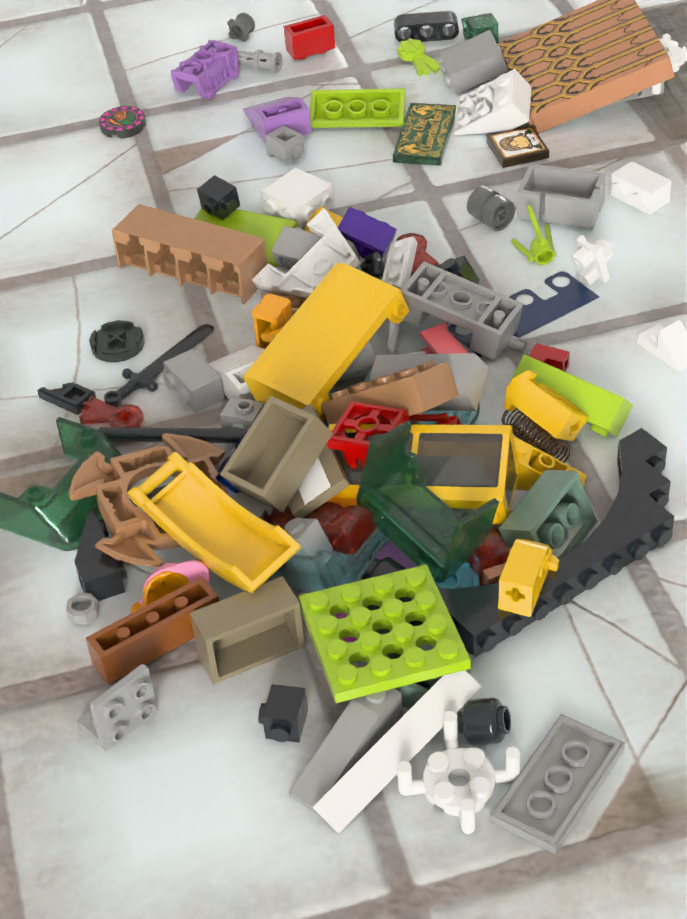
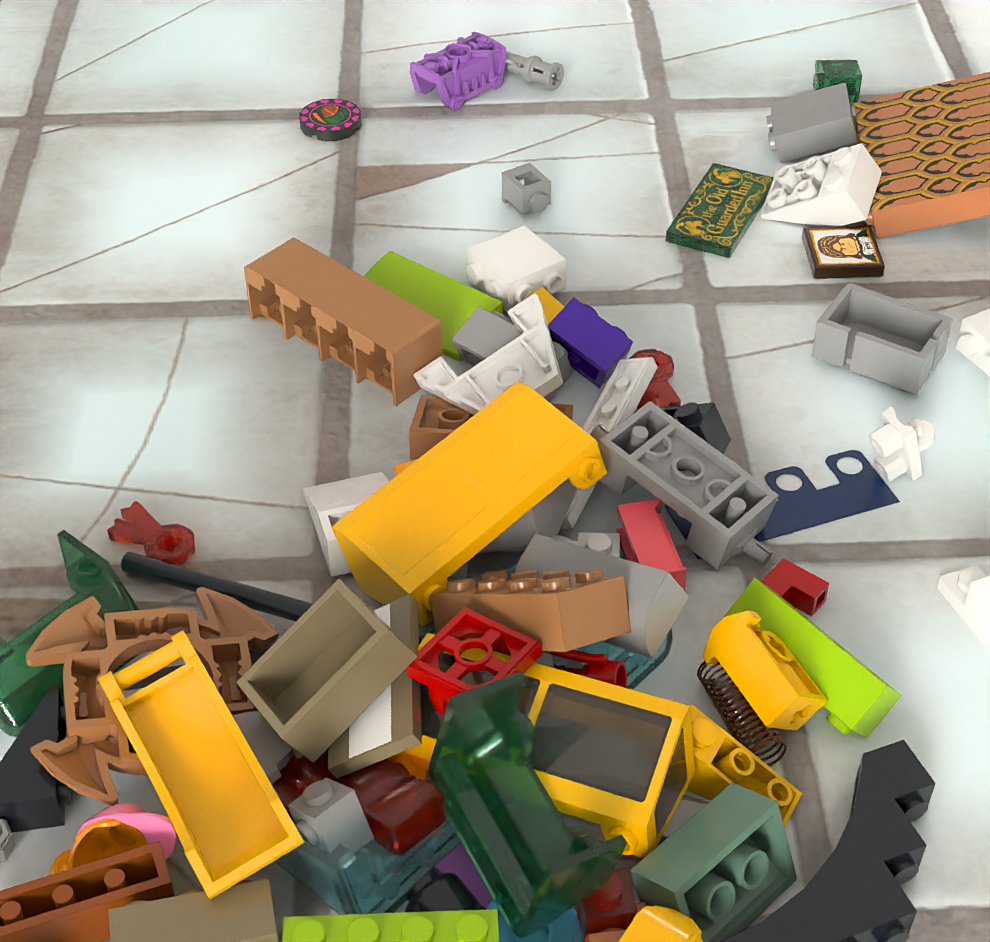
camera: 10 degrees right, 0 degrees up
(68, 397) = (107, 494): black tile -> none
(117, 341) = (204, 426): pearl dark grey tile -> none
(143, 378) = (213, 491): black sword -> none
(193, 380) = (280, 509): light grey brick -> none
(218, 197) = (405, 248): black brick -> none
(240, 413) = (318, 574): light grey brick -> none
(241, 26) = (524, 22): dark grey brick -> none
(269, 316) = (410, 436): light orange brick -> none
(284, 111) = (540, 145): medium lavender slope -> none
(309, 37) = (606, 51): red brick -> none
(357, 108) = (639, 157): lime slope -> none
(373, 265) = (584, 391): black piece -> none
(414, 51) = (740, 94): lime piece -> none
(436, 32) = (778, 56): black beam -> none
(490, 208) = (777, 335): dark grey wheel -> none
(541, 249) = (832, 412): lime plant -> none

